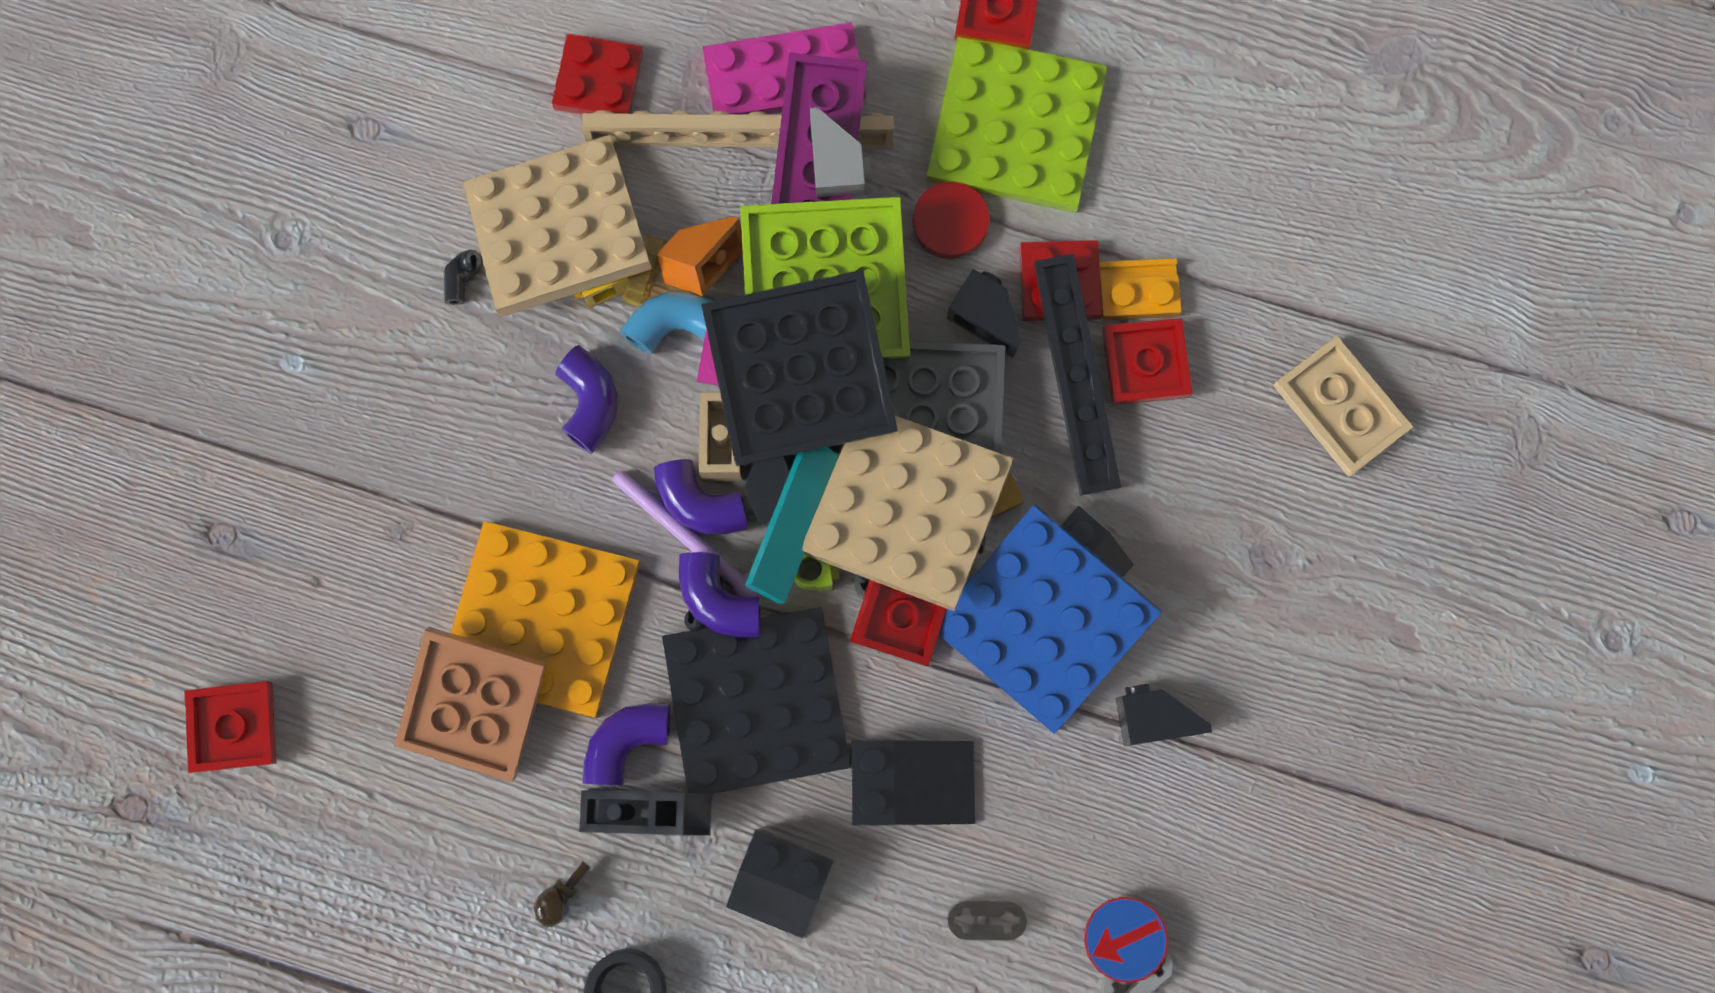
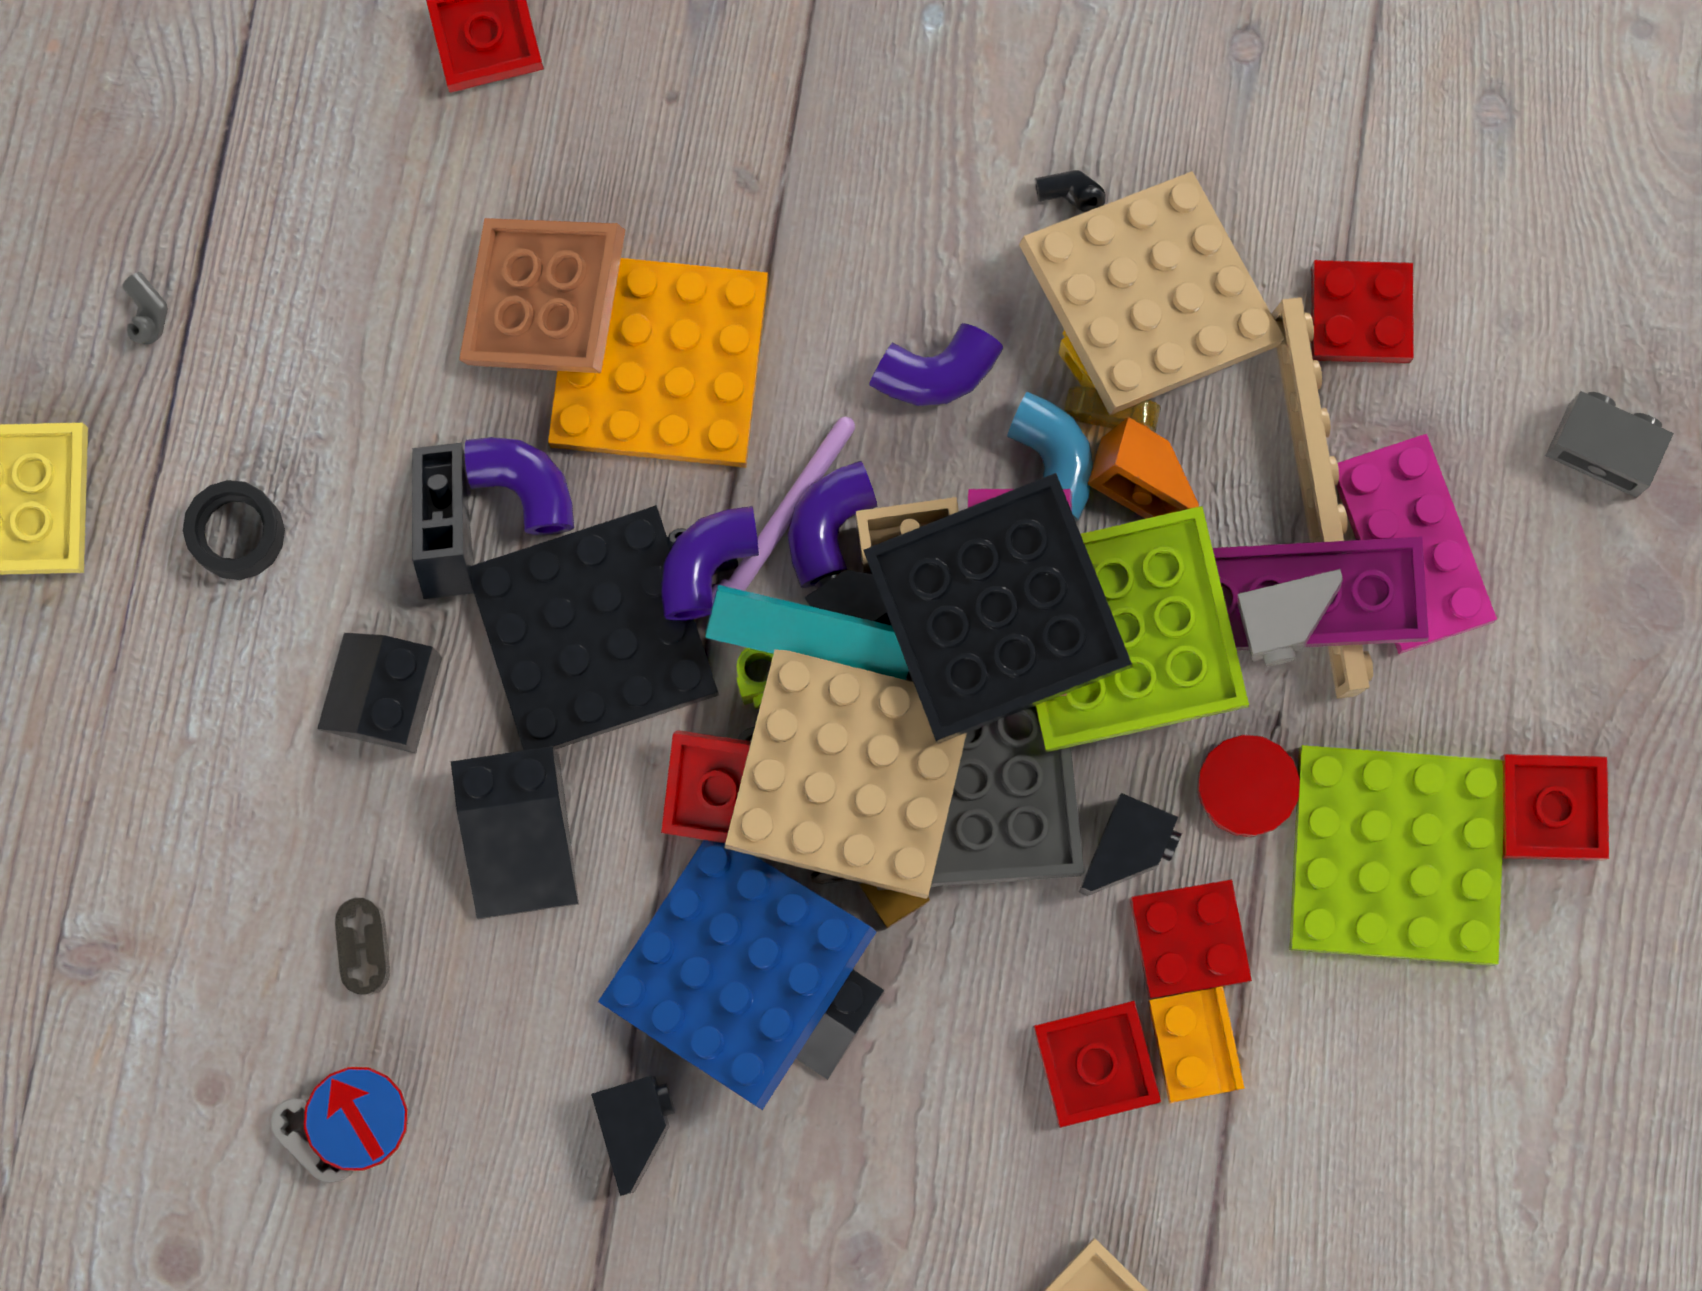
camera: 90 degrees right, 0 degrees up
(553, 902) = (324, 430): dark brown piece -> none
(1076, 374) = (1060, 970): black plate -> none

